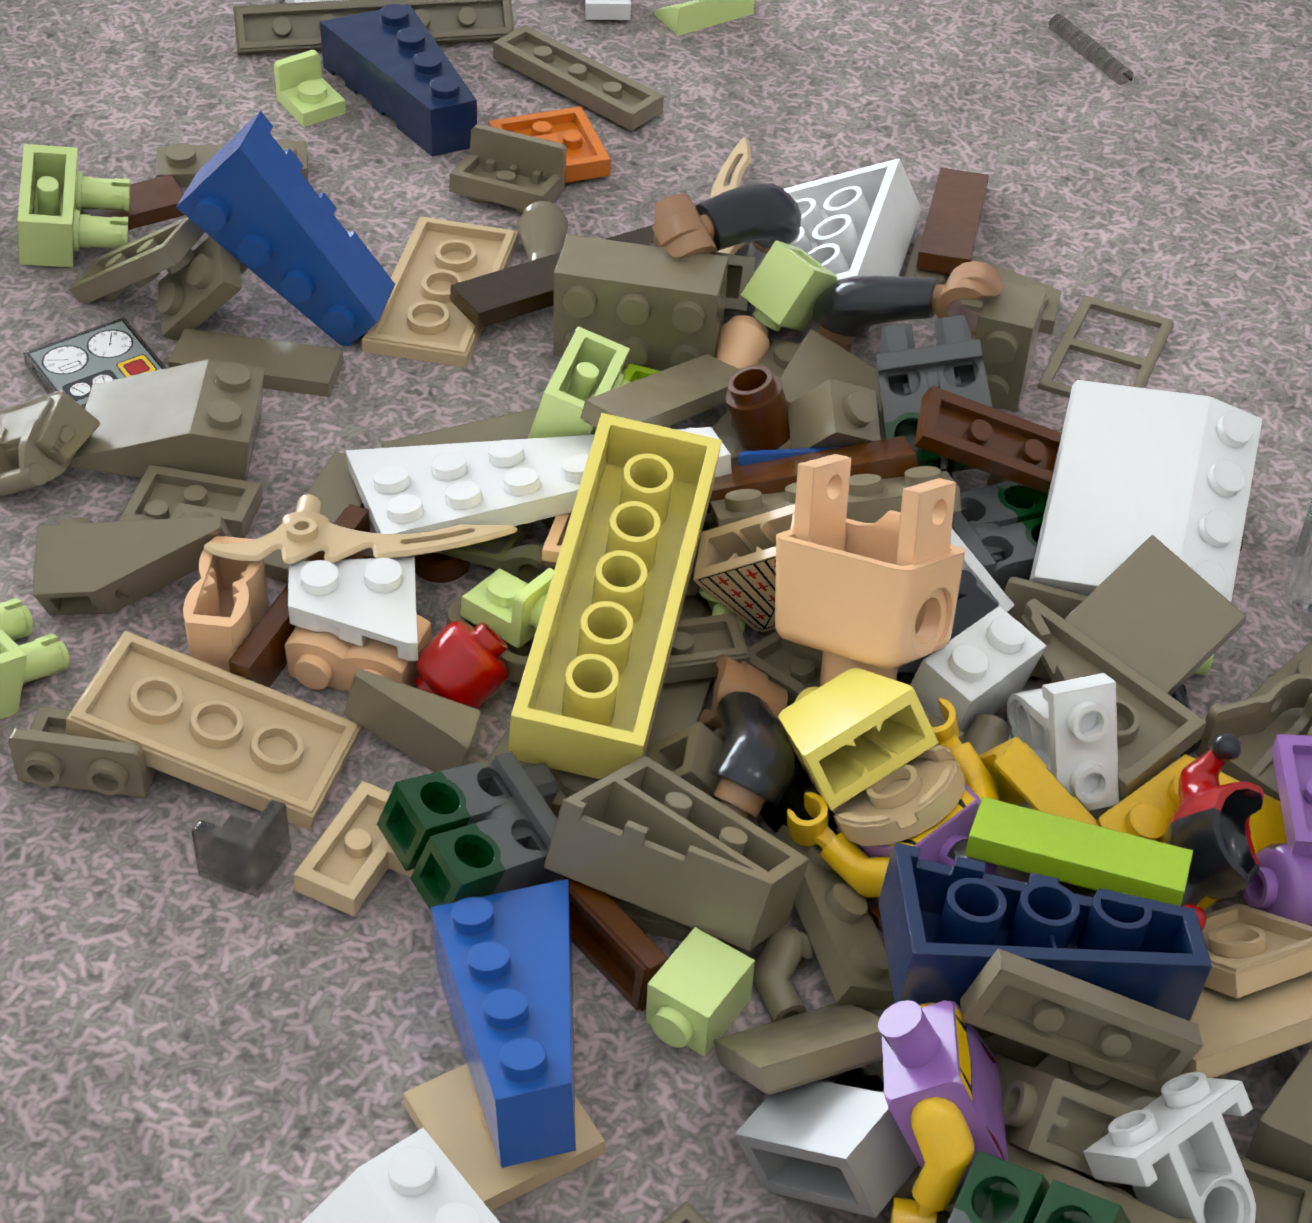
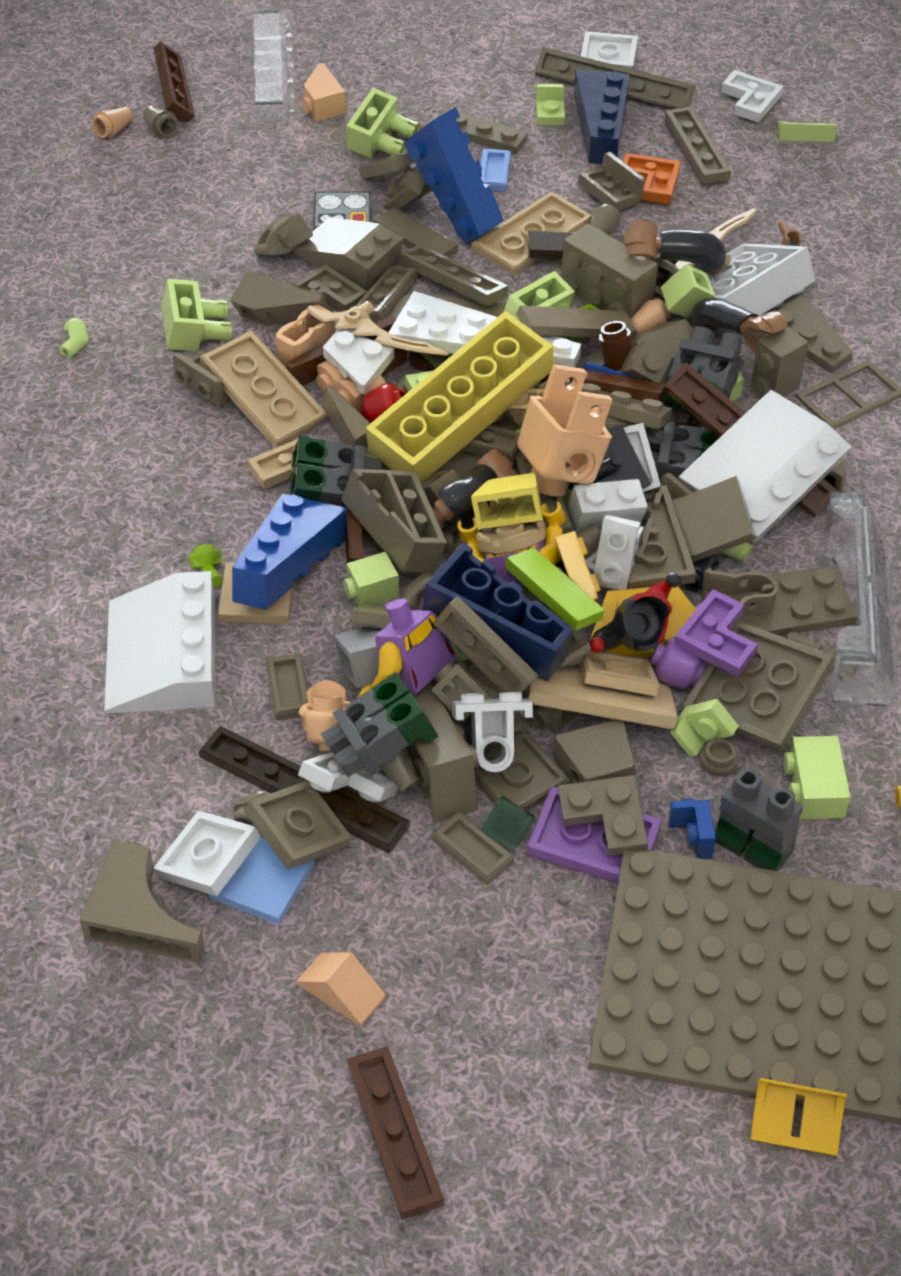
camera: 35 degrees right, 5 degrees up
(243, 852) = (238, 445): clear smoke panel -> none
(289, 467) = (389, 290): none -> dark tan tile
(357, 1106) = (205, 558): none -> lime plate
(383, 400) = (454, 275): none -> dark tan plate
(823, 163) = (789, 234): none -> medium nougat hand
(952, 221) = (826, 293): reddish brown tile -> none

